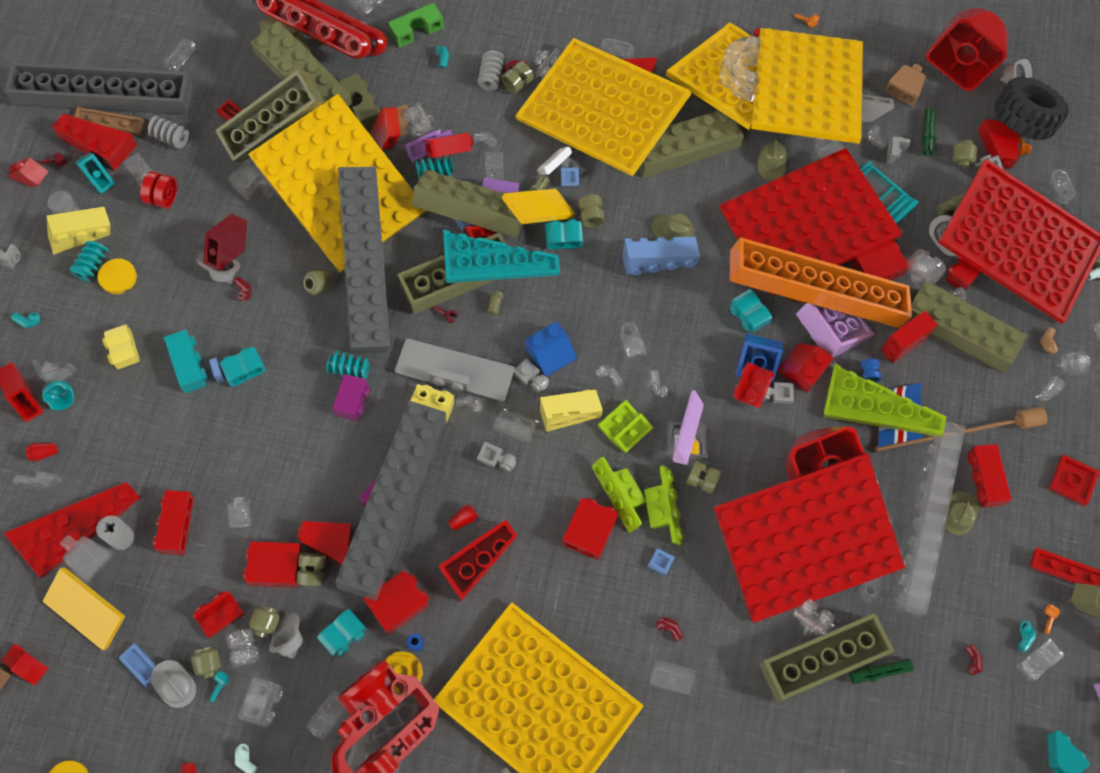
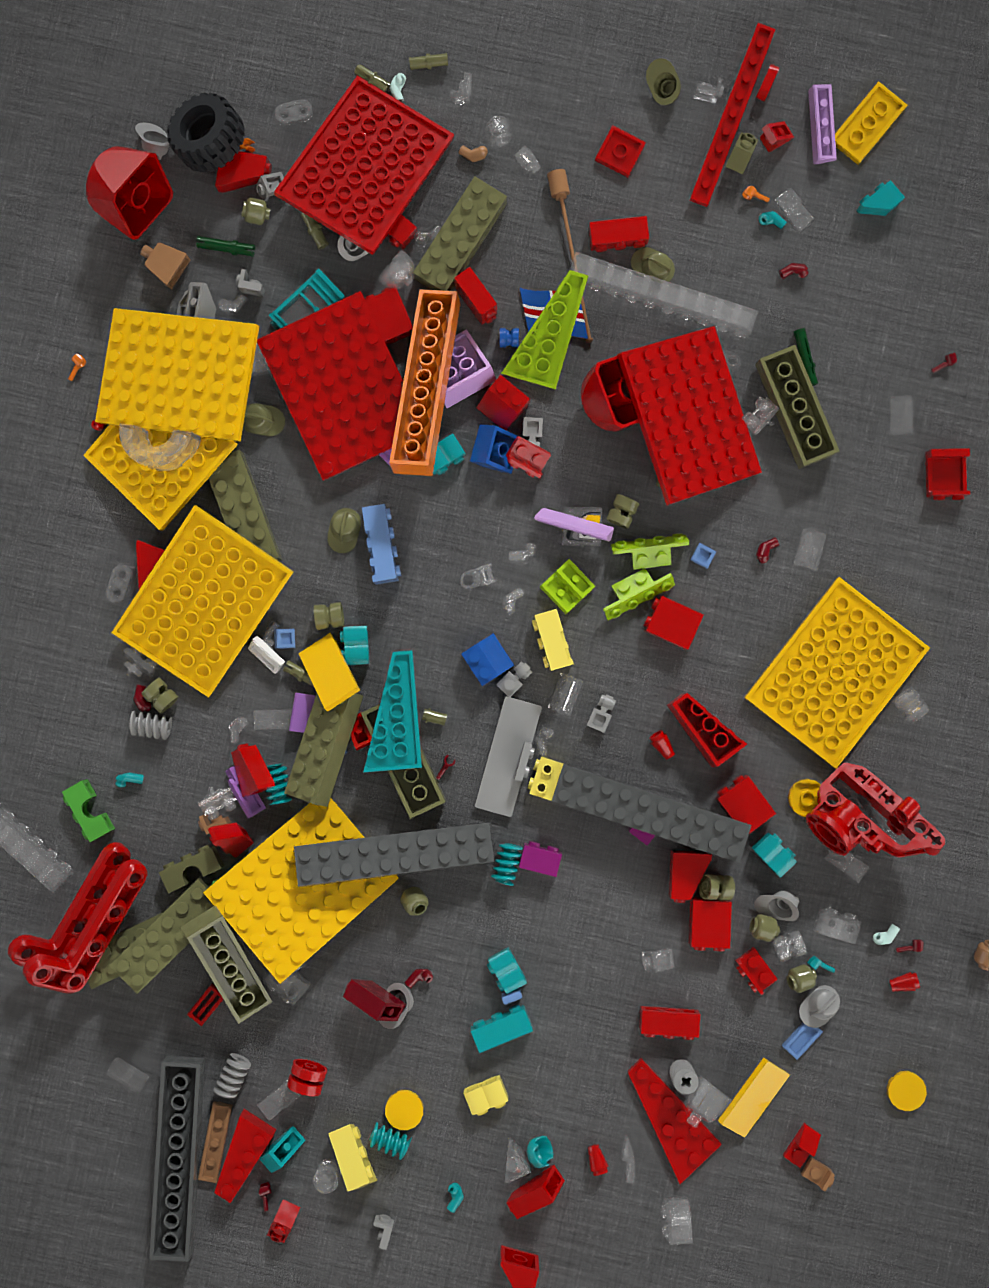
camera: 85 degrees left, 20 degrees up
(411, 639) = (786, 790): blue pin -> none

